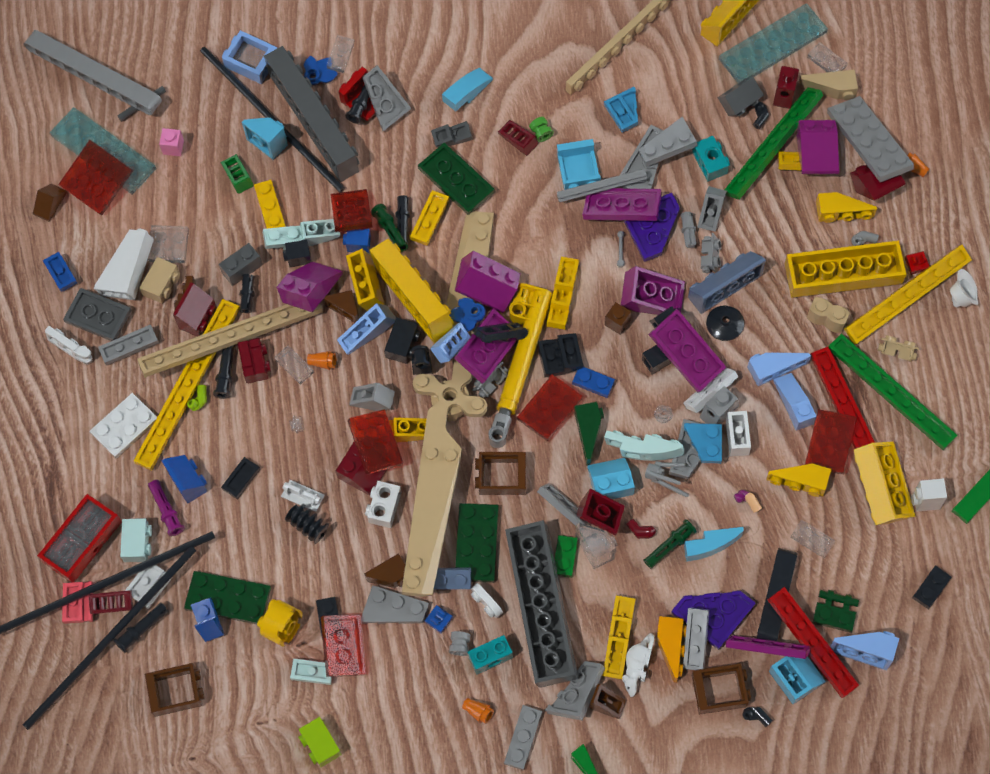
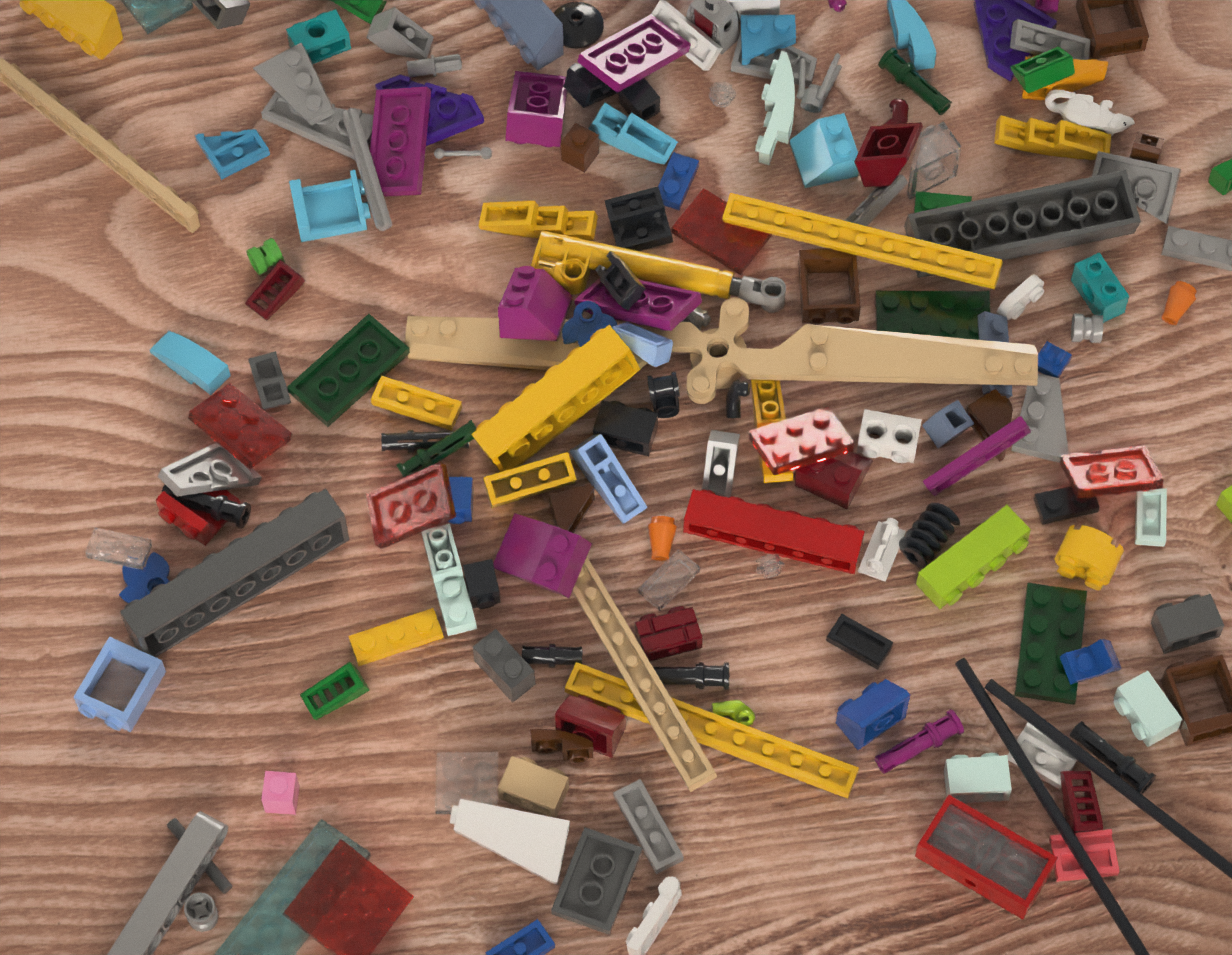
camera: 95 degrees left, 5 degrees down
(104, 103) = (198, 906): none -> light grey wheel
(124, 425) = (785, 821): white plate -> none
(171, 651) = (1147, 709): none -> light aqua brick
(229, 685) = (1187, 623): none -> dark grey brick
(253, 100) = (230, 650): black piece -> none
(266, 135) = (279, 638): medium azure slope -> none
(291, 552) = (973, 557): none -> lime brick
(320, 428) = (773, 531): none -> red brick
(357, 555) = (977, 456): none -> magenta tile
(387, 540) = (947, 424): none -> sand blue brick
(418, 407) = (733, 398): none -> black arm
(419, 117) = (240, 426): none -> clear red plate
(524, 490) = (862, 241): none -> yellow plate
(588, 421) = (756, 179): dark green slope -> none
(628, 353) = (632, 135): none -> medium azure slope
(669, 629) = (1044, 69): none -> green slope
(712, 261) = (462, 36): light grey hinge -> none

